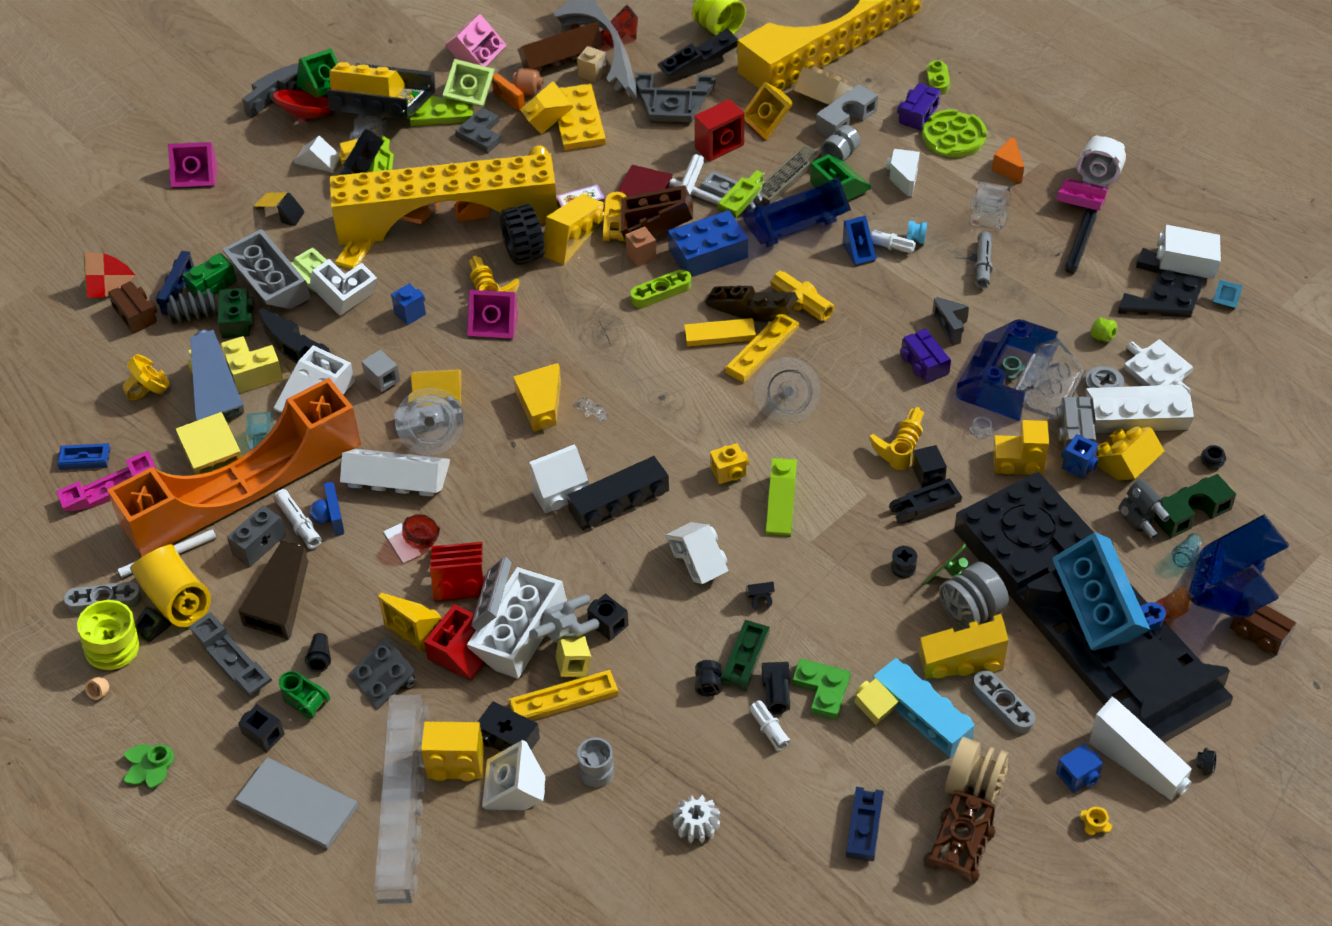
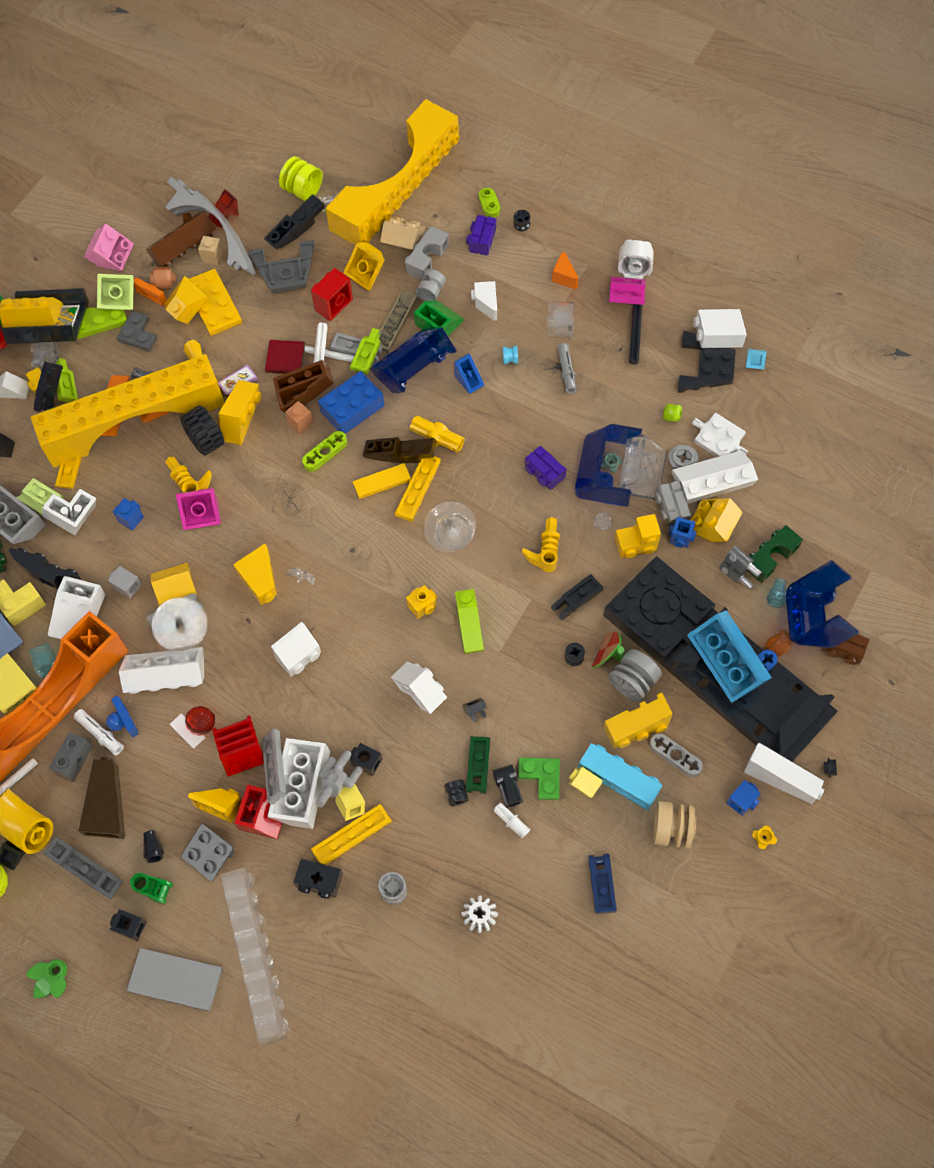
camera: 15 degrees left, 15 degrees up
(453, 750) = (283, 909): yellow brick -> none
(513, 780) = (334, 918): white slope -> none
(612, 217) = (268, 391): yellow plate -> none
(618, 493) = (344, 647): black brick -> none
(892, 241) = (493, 367): white axle -> none
(929, 465) = (572, 566): black brick -> none
(950, 318) = (554, 428): dark grey slope -> none
(954, 133) = (514, 254): lime tile -> none
(972, 100) = (524, 216): none -> black wheel
(975, 843) = (663, 880): reddish brown piece -> none
(1213, 456) = (777, 502): black plate -> none

